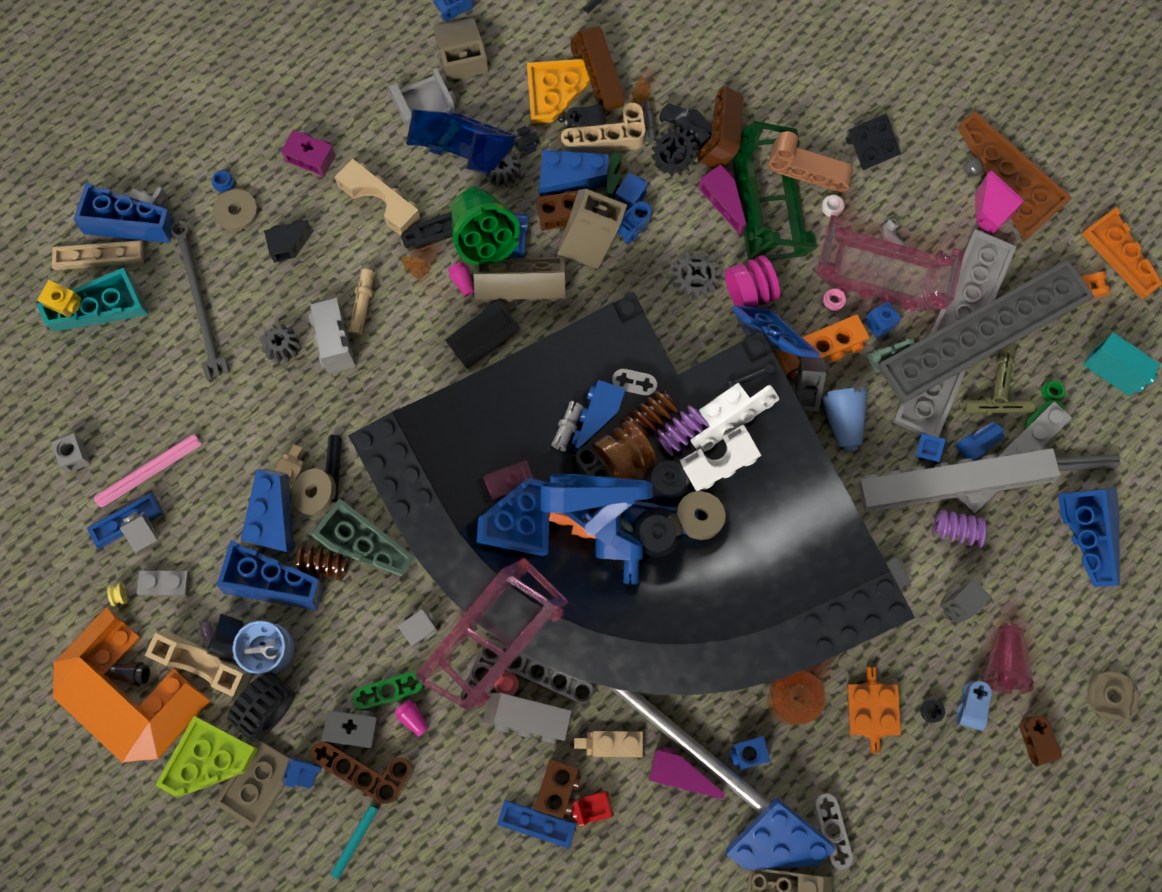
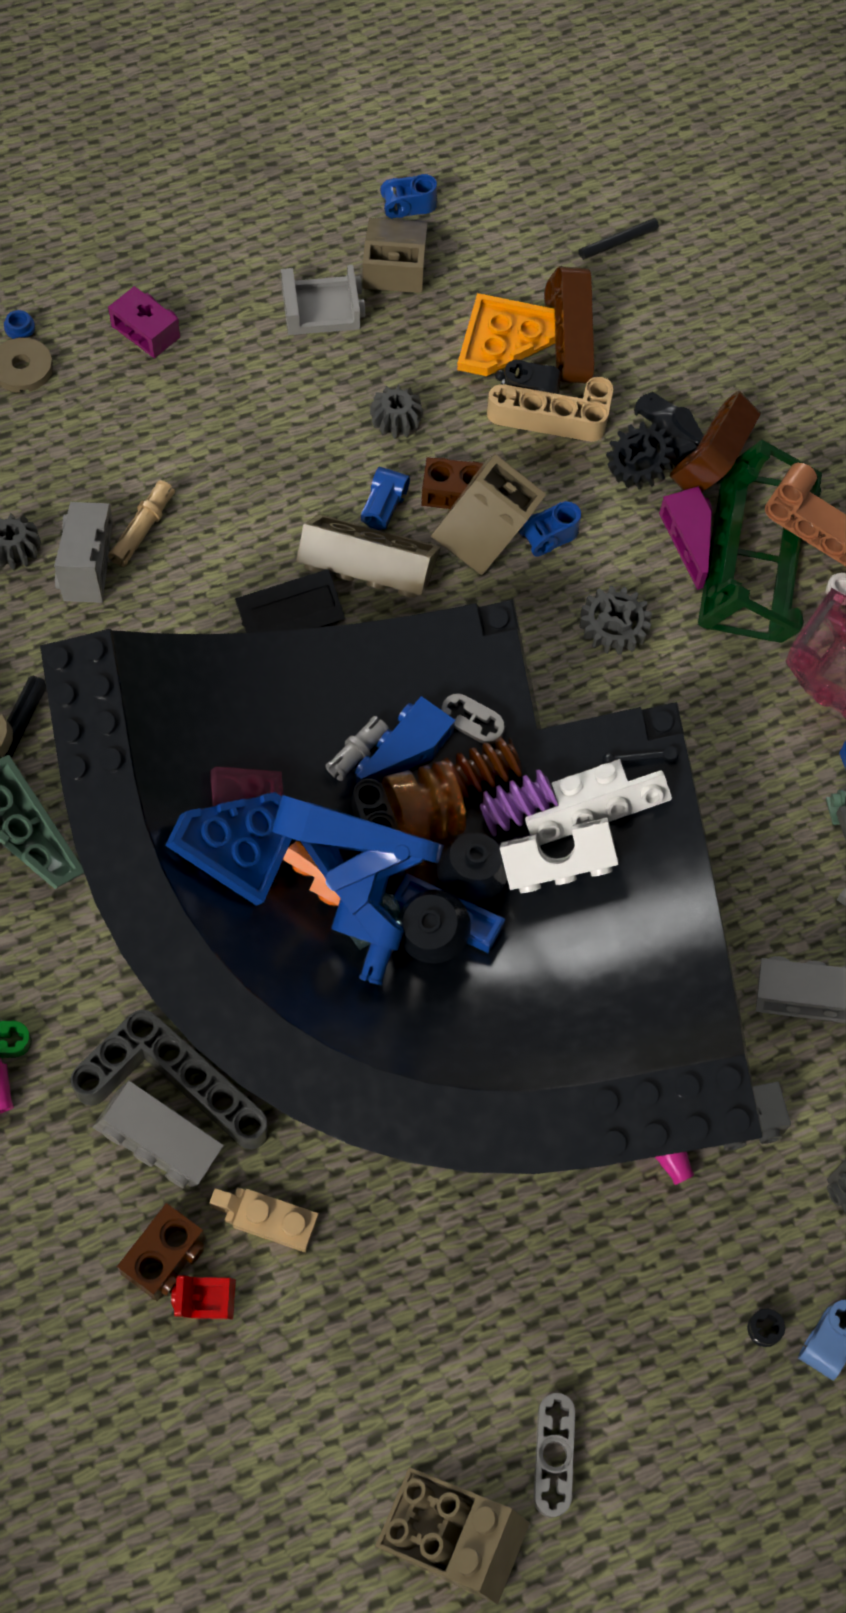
camera: 15 degrees right, 10 degrees down
(287, 240) = (74, 418): black slope -> none
(358, 181) = (197, 374): tan arch -> none
(416, 266) = (233, 499): clear orange slope -> none
(418, 628) = (51, 965): light grey brick -> none
(428, 232) = (271, 462): black hinge -> none
(443, 654) = (59, 1000): clear pink windscreen -> none
(461, 135) = (349, 353): clear blue windscreen -> none
(462, 278) = (288, 528): dark pink cone -> none
(483, 227) = (339, 471): green cone -> none
(507, 684) = (148, 1079): coral plate -> none
(527, 140) = (442, 385): black gear -> none
(536, 824) = (115, 1295): blue tile -> none
(572, 171) = (480, 433): blue wedge -> none
(613, 179) = (543, 463): dark green slope -> none
(631, 190) = (563, 485): blue brick -> none
(641, 91) = (620, 368): clear orange slope -> none
(650, 133) = (617, 409): dark grey axle -> none
(678, 773) = (347, 1288): magenta slope -> none
(694, 749) = (466, 1391): flat silver piece -> none
(710, 506) = (514, 908): dark tan tile -> none
(752, 283) = (695, 651): dark pink wheel -> none
(760, 753) = (481, 1286): blue brick -> none
(776, 331) = (698, 713): blue wedge -> none
(779, 841) = (466, 1438): blue plate -> none
(793, 712) = (543, 1246): clear orange wheel -> none
(810, 382) = (729, 803): dark grey brick -> none
(834, 293) = (808, 702): bright pink plate -> none
(846, 415) = (769, 864): medium blue cone -> none
(848, 329) = (777, 754): orange brick -> none
(873, 710) = (676, 1296): orange plate -> none

